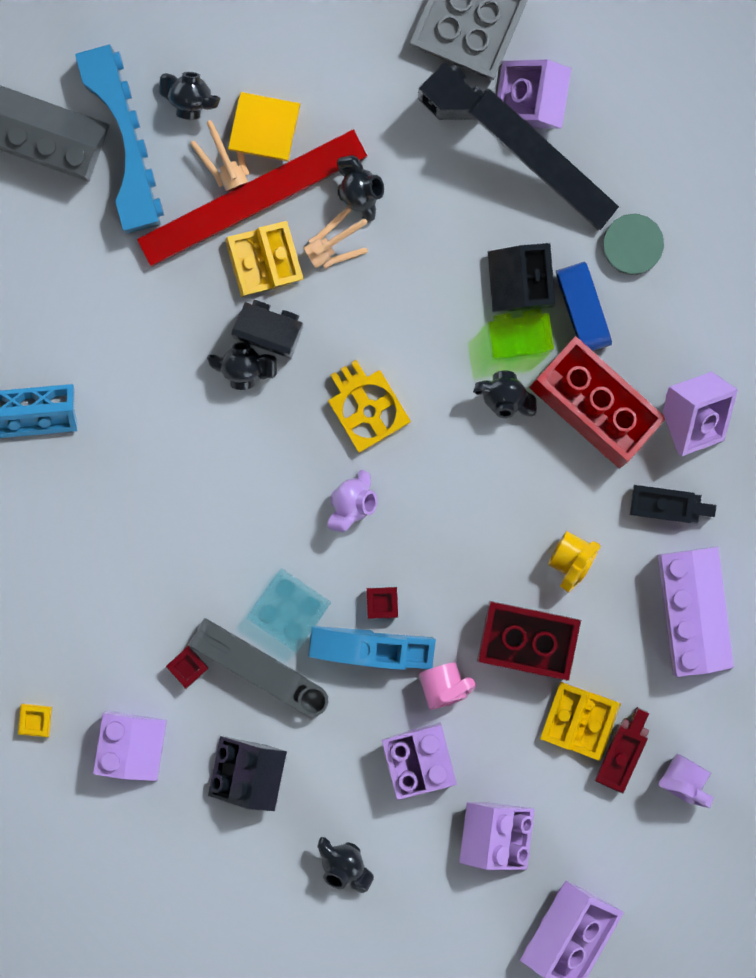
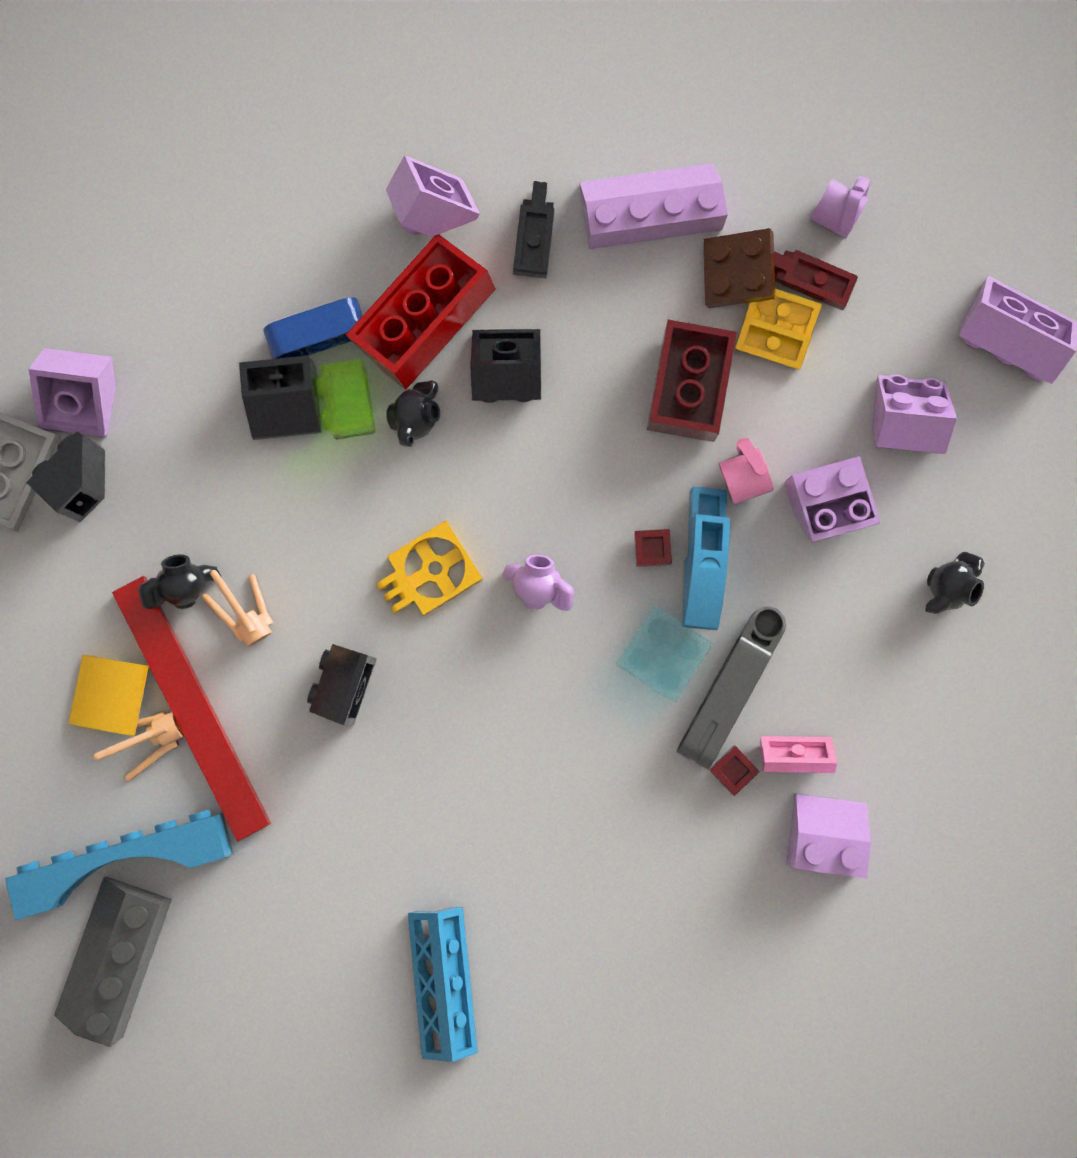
camera: 90 degrees left, 5 degrees down
(35, 720) = (802, 949): yellow tile -> none
(187, 94) = (67, 784): black piece -> none
(199, 722) = (797, 754): none -> bright pink plate
(243, 365) = (383, 712): black piece -> none
(247, 774) = (855, 697): black slope -> none
(264, 258) = (261, 692): yellow slope -> none
(543, 158) = (141, 375): black tile -> none
(549, 477) = (506, 365): none -> black slope
(573, 558) = (597, 334): yellow piece -> none
(632, 687) = (739, 268): none -> reddish brown plate
(633, 244) = (244, 279): sand green tile -> none

